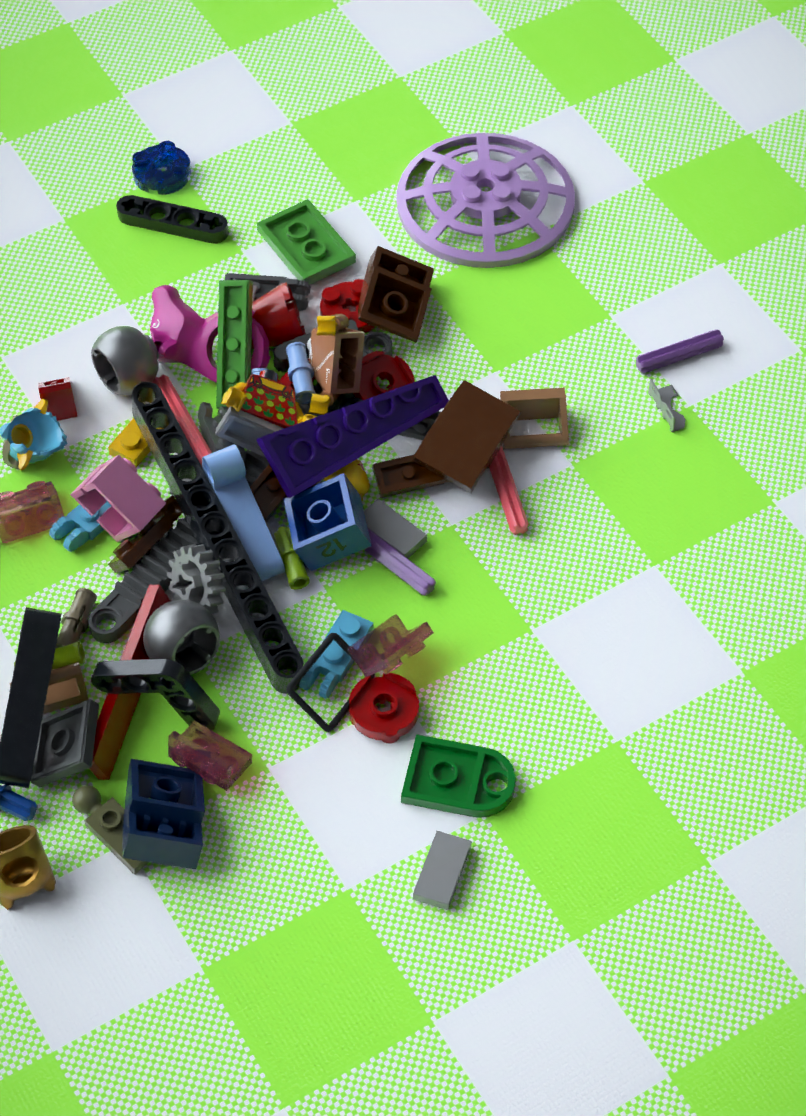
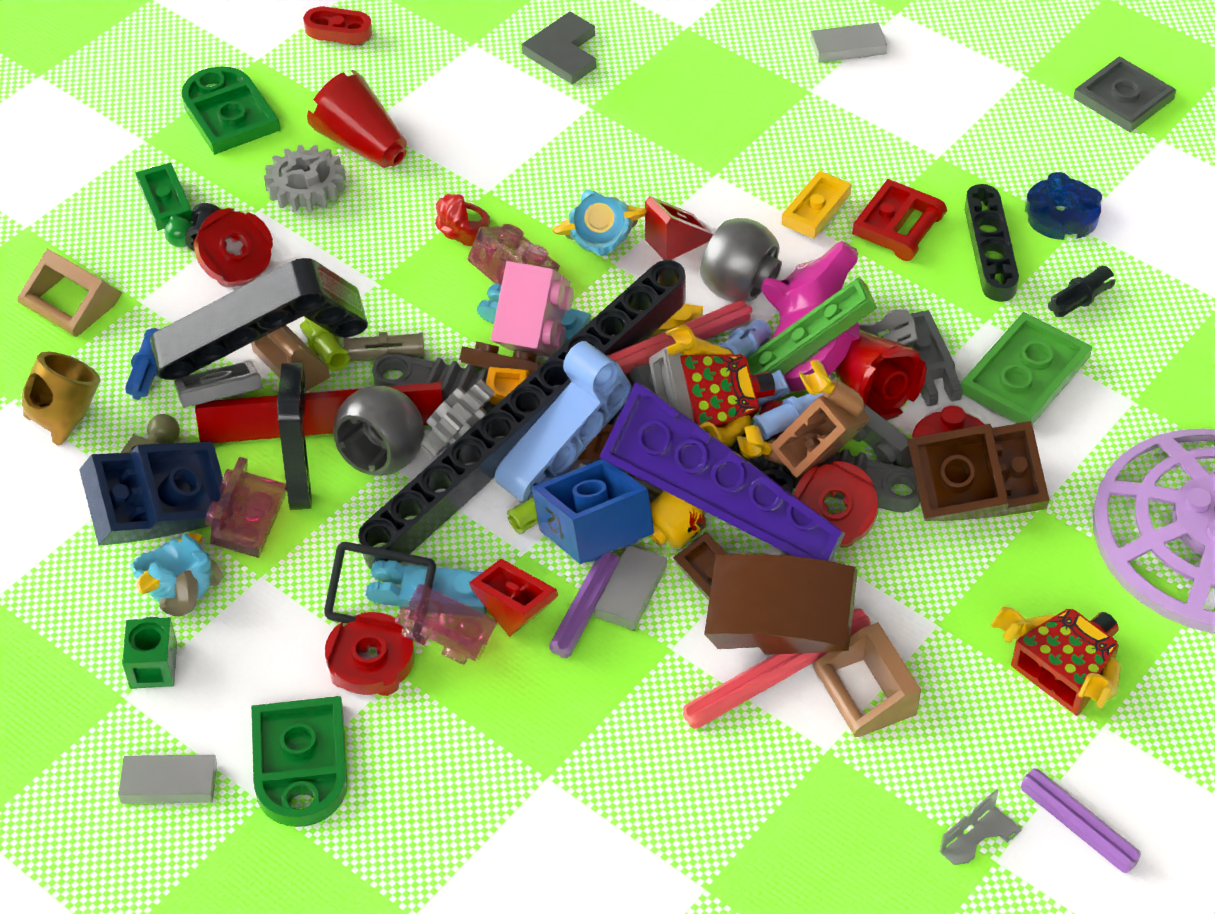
camera: 70 degrees right, 5 degrees down
(67, 94) = (1124, 94): none -> dark grey tile
(79, 302) = (816, 204): none -> yellow plate
(115, 266) = (889, 212): none -> red plate
(172, 540) = (504, 381): none -> light orange tile
(202, 386) = (748, 339): none -> light blue pin
(250, 186) = (1081, 291): none -> black axle
(254, 815) = (177, 574): none -> medium azure hair
(325, 867) = (149, 652): none -> green brick
(382, 594) = (512, 595): none -> red slope
(564, 307) = (1065, 655): none -> torso

